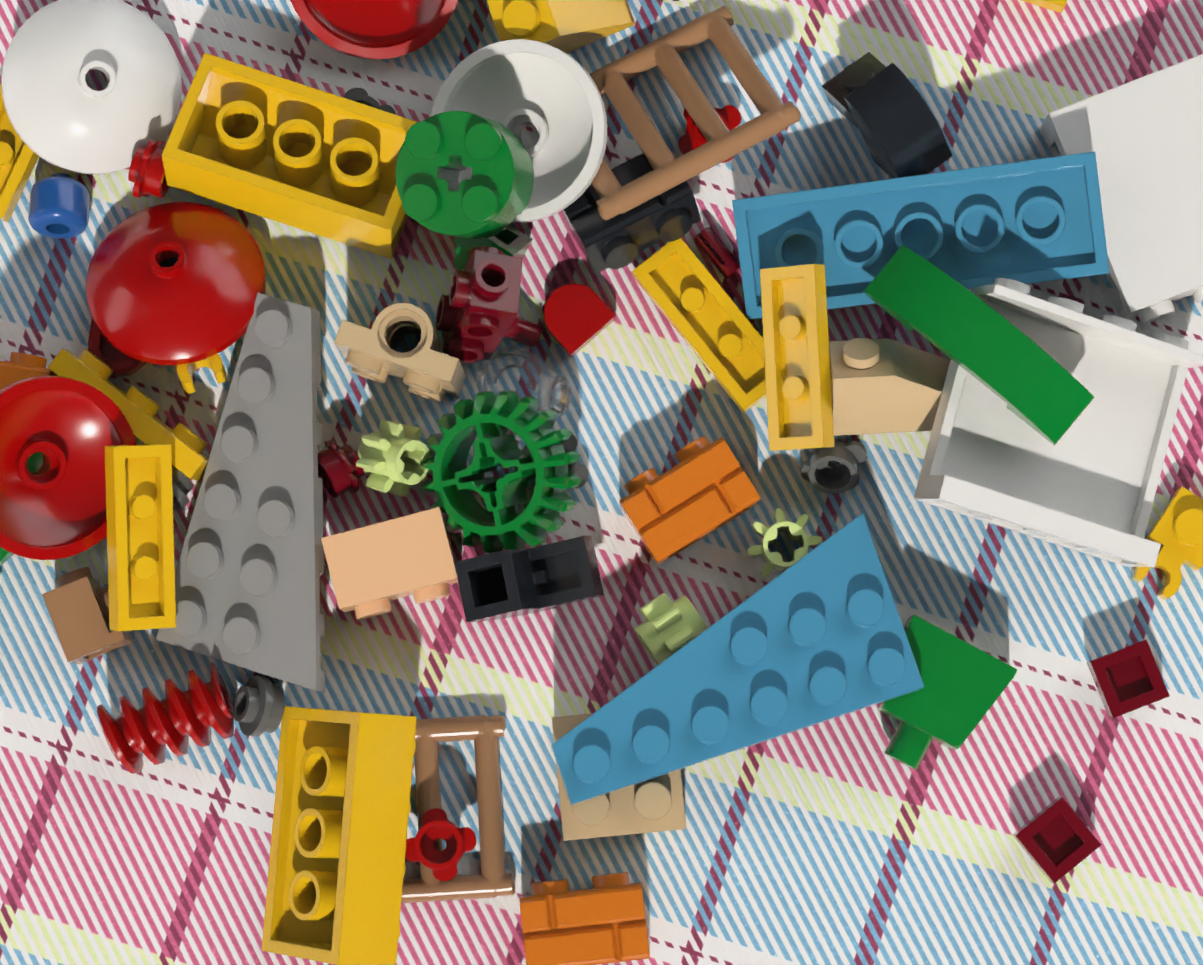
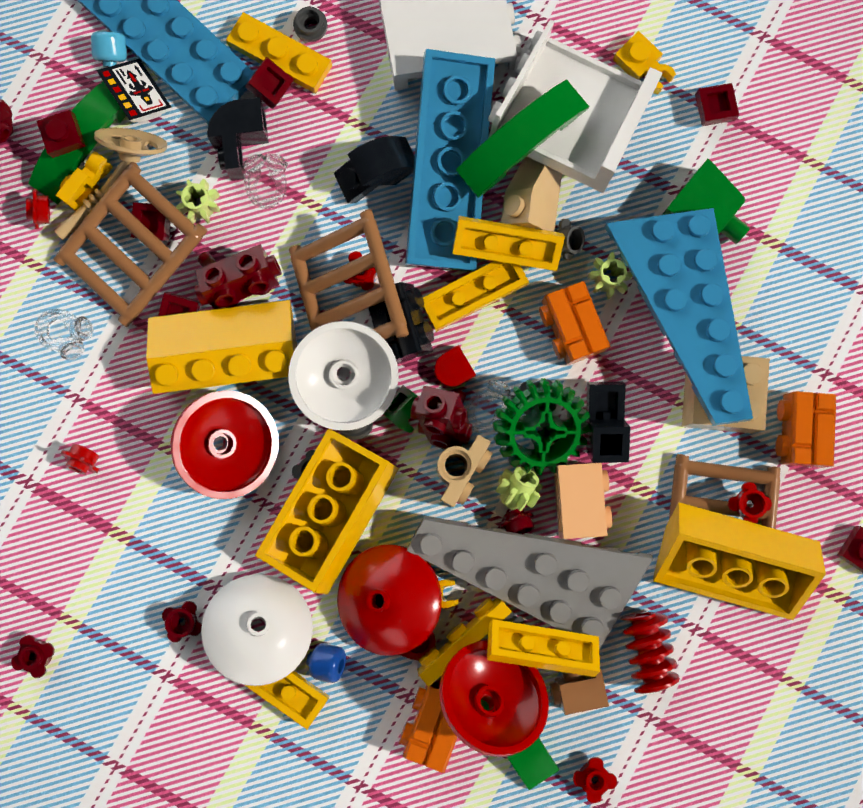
camera: 90 degrees left, 0 degrees up
(148, 171) = (317, 603): red plate -> none
(259, 706) = (650, 595): dark grey plate -> none
(431, 167) = (379, 428): green brick -> none
(668, 626) = (647, 348): yellowish green gear -> none
(717, 252) = (431, 281): dark red piece -> none
(1056, 840) = (799, 160): dark red plate -> none

